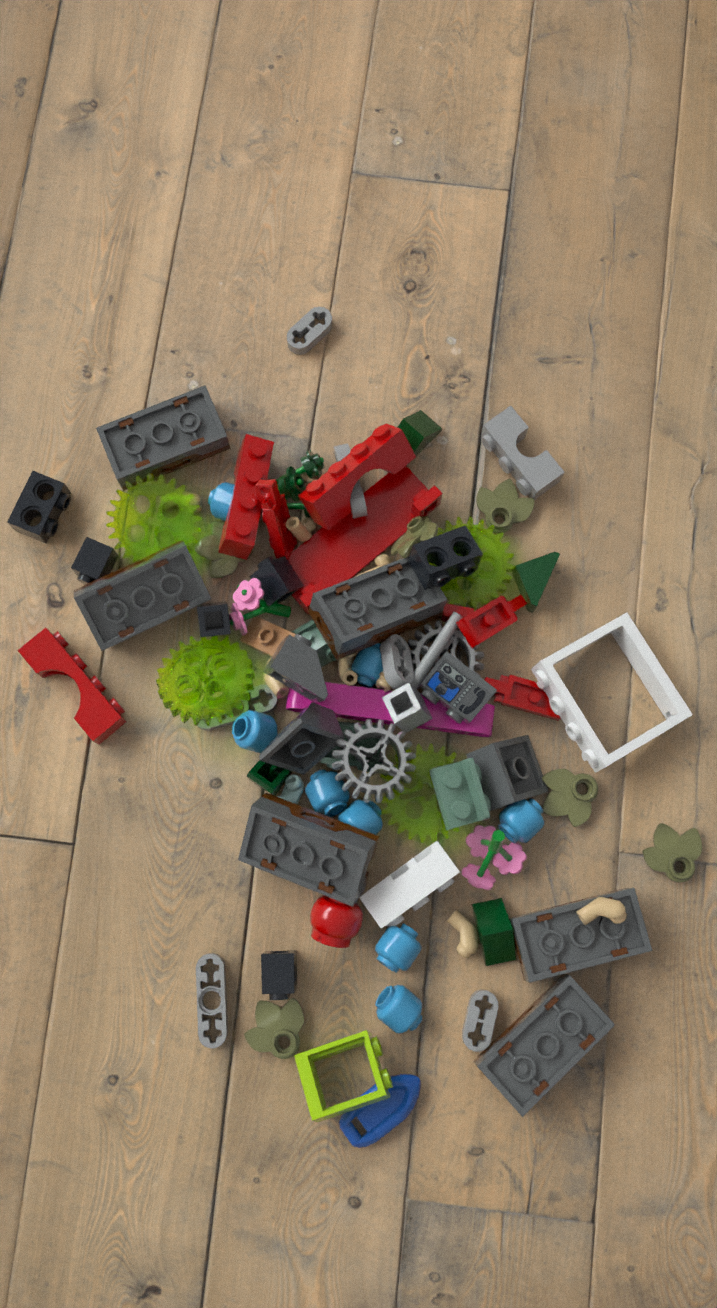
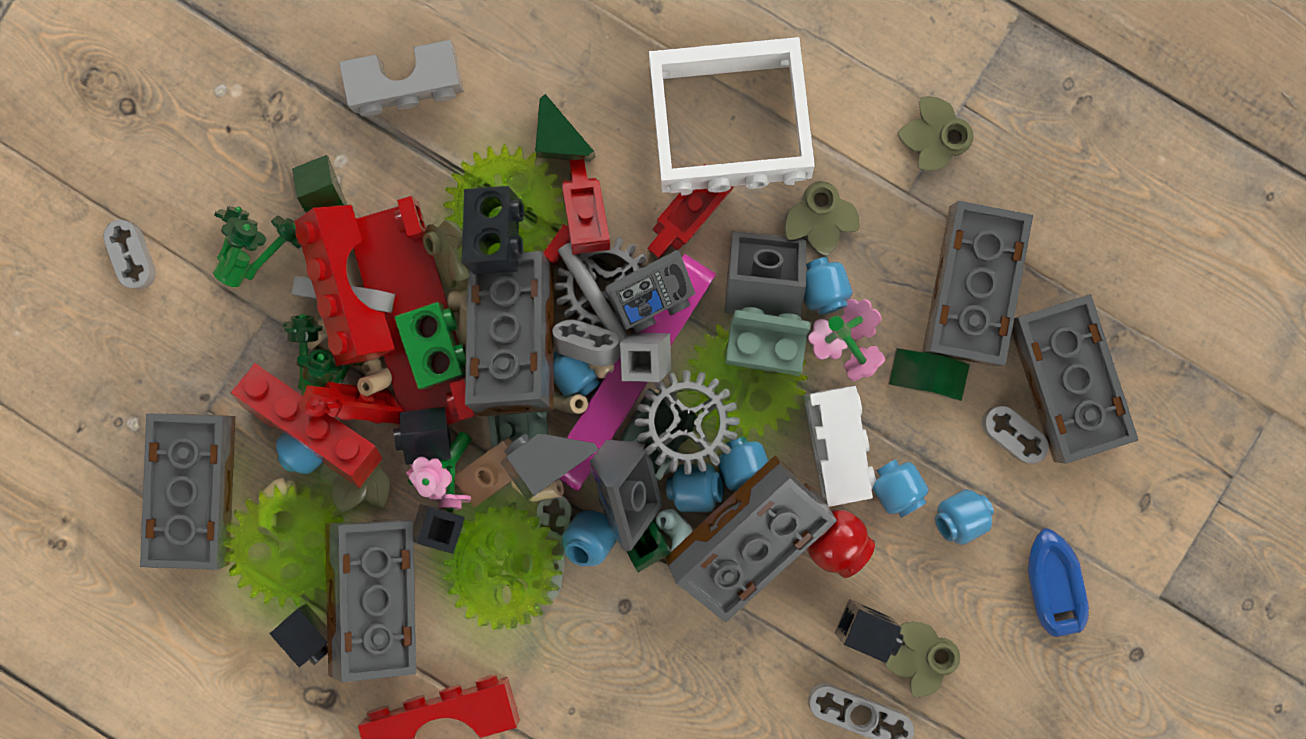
camera: 55 degrees left, 10 degrees up
(32, 505) = (197, 679): black brick -> none
(312, 1086) = (1000, 647): lime window -> none
(336, 552) = (422, 349): none -> green brick
(361, 392) = (242, 232): none -> plant
(468, 934) = (919, 403): tan arm -> none
(503, 503) = (452, 125): olive plate -> none
(603, 907) = (965, 245): tan arm -> none

